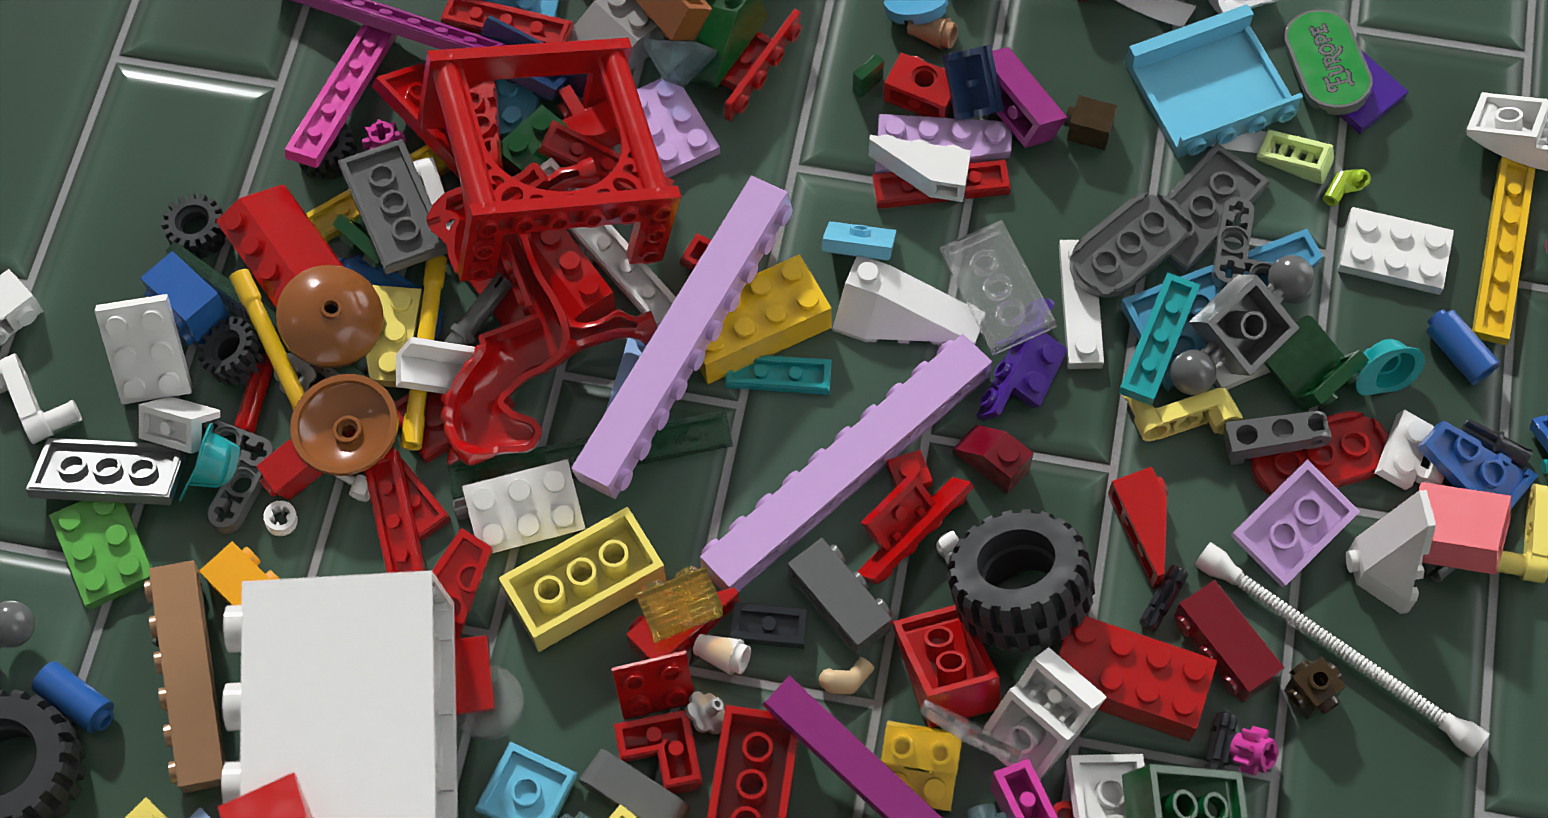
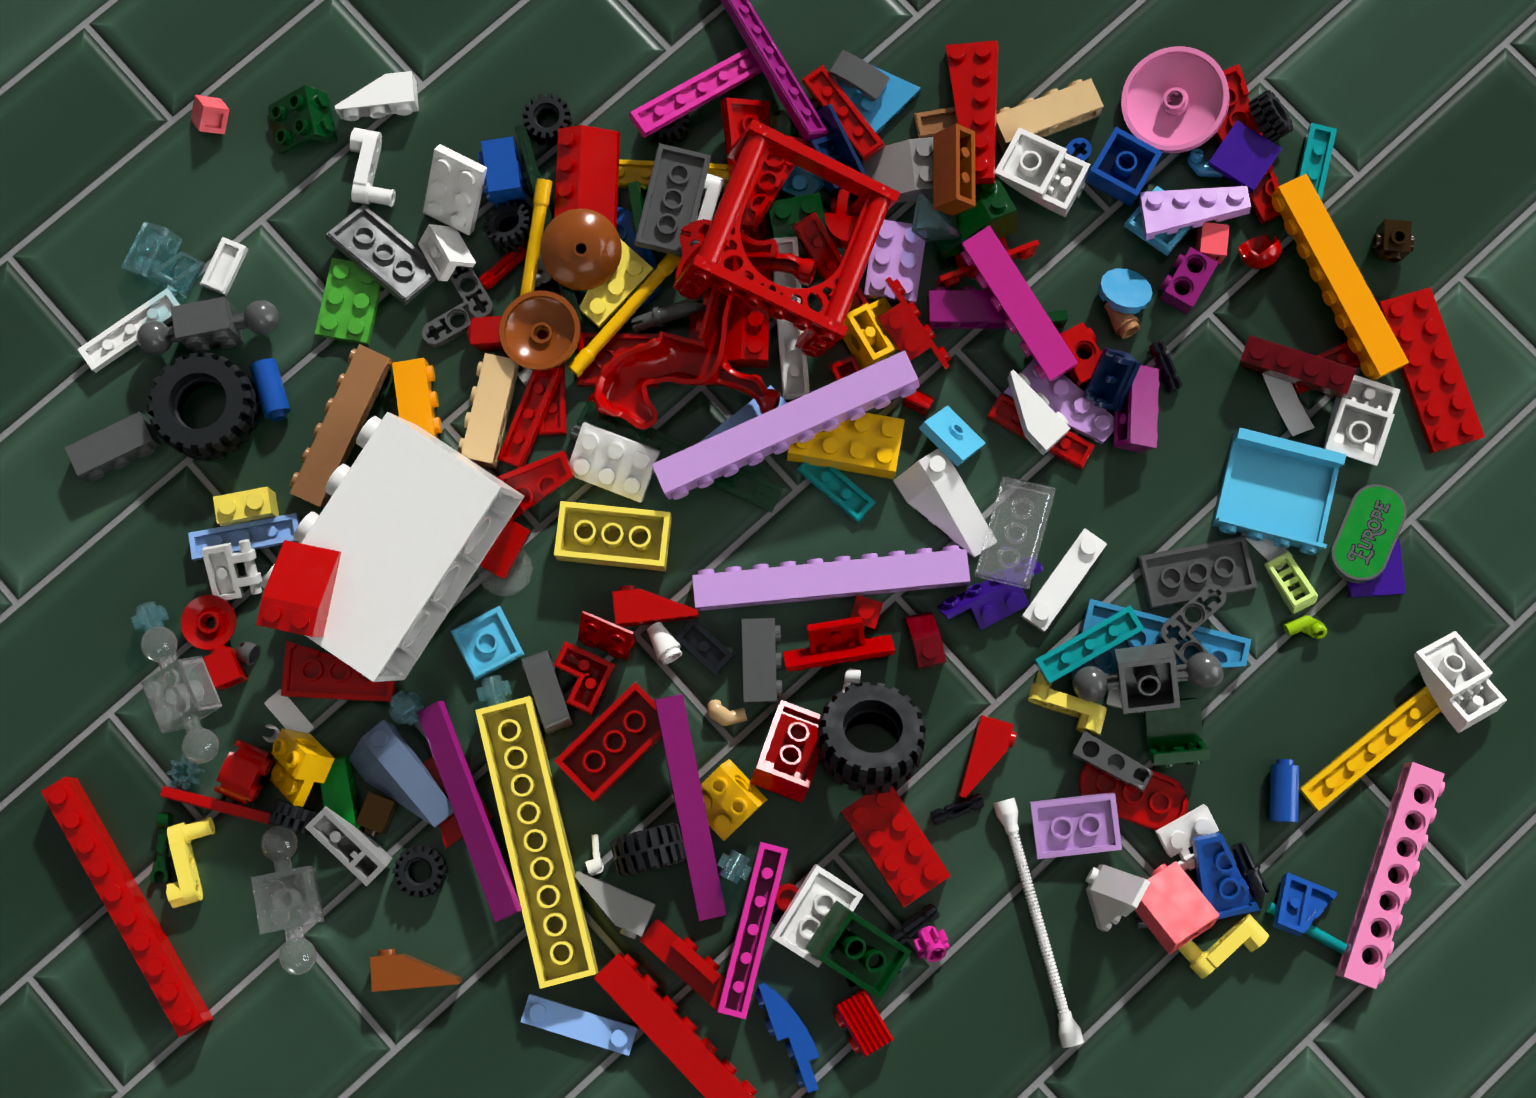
camera: 35 degrees right, 15 degrees up
(215, 462) = (448, 297): teal piece -> none
(276, 507) = (460, 354): white bush -> none
(337, 529) = (489, 410): none -> tan brick
(381, 134) = (701, 136): dark pink gear -> none
(430, 364) = (618, 329): white panel -> none
(679, 603) = (654, 597): clear yellow brick -> none
(704, 199) = (866, 334): none -> yellow brick
(706, 712) = (625, 673): light grey plant -> none
(730, 171) = (907, 330): none -> red bracket
(777, 118) = (962, 309): none -> magenta brick
(797, 238) = (919, 402): none -> red slope
(827, 72) = (1018, 304): none -> dark pink brick
(970, 731) = (765, 807): clear tile -> none
(1031, 56) = (1165, 366): none -> black axle
(1045, 711) = (818, 828): white slope -> none
(1090, 122) = (1172, 460): dark brown brick -> none
(1128, 245) = (1124, 565): dark grey tile -> none
(1229, 638) = (971, 866): dark red brick -> none
(1314, 687) = (989, 933): dark brown brick -> none
(1389, 367) = (1222, 770): teal piece -> none
(1395, 250) = (1300, 695): white plate -> none

